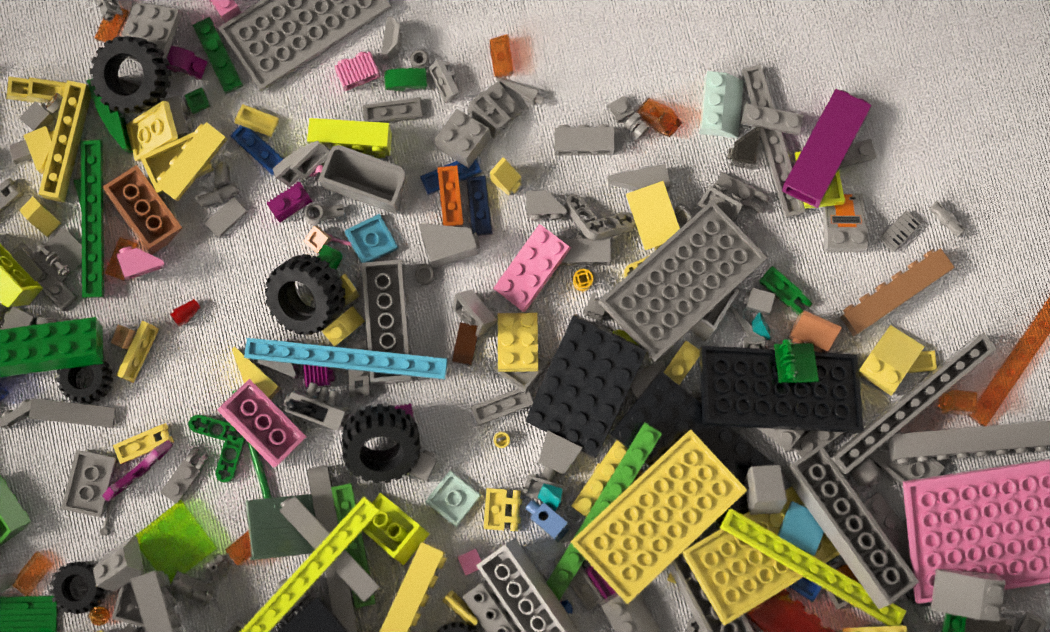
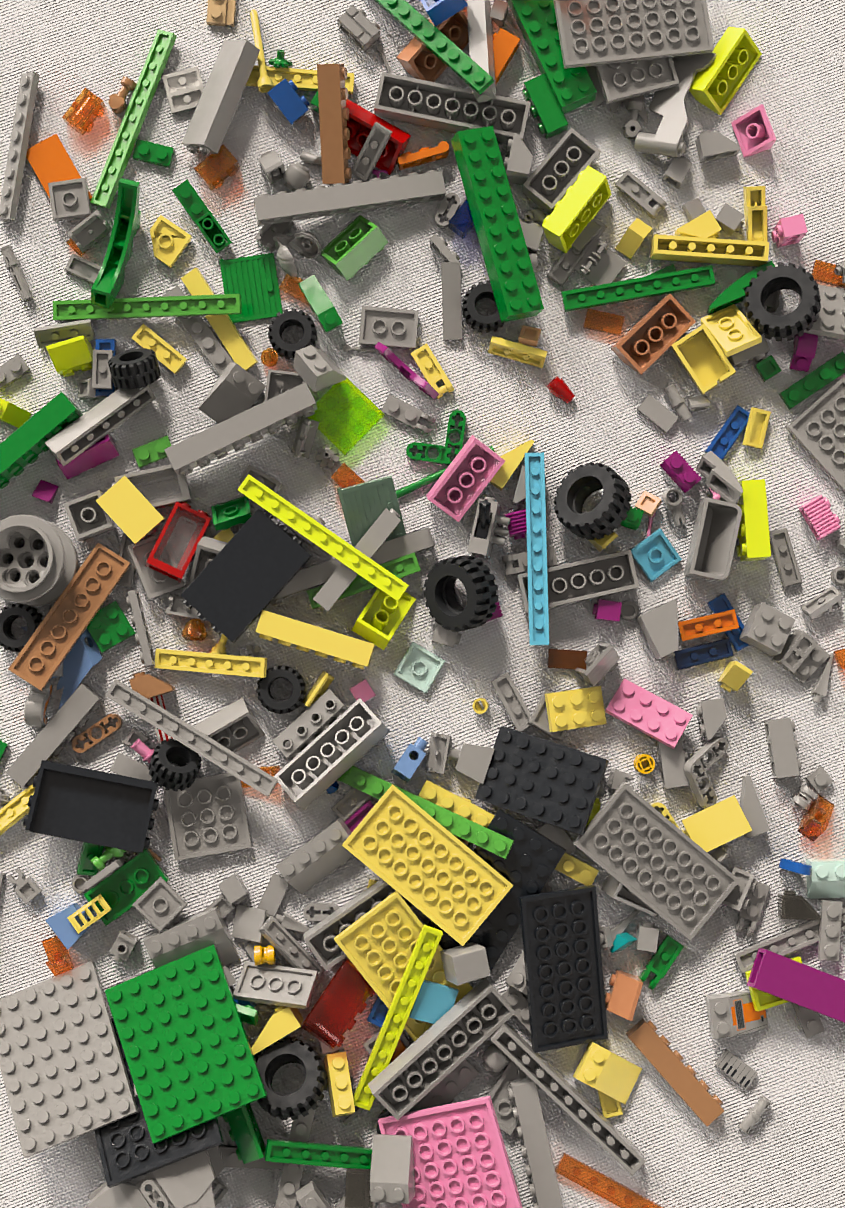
camera: 85 degrees right, 5 degrees up
(52, 553) = (320, 304): none -> slope
(54, 103) = (745, 233): light grey tile -> none
(59, 58) = (789, 230): none -> bright pink brick
(137, 262) = (601, 337): bright pink slope -> none
(191, 161) = (706, 374): light yellow brick -> none
(343, 326) = (567, 541): light yellow slope -> none
(405, 78) = (819, 565): green slope -> none
(421, 296) = (607, 610): none -> magenta brick
(495, 509) = (414, 708): light yellow plate -> none
(550, 495) = (433, 759): teal slope -> none
(705, 144) = (794, 866): none -> blue beam
(796, 362) = (591, 980): green hinge -> none
(958, 402) = (574, 1143): clear orange brick -> none

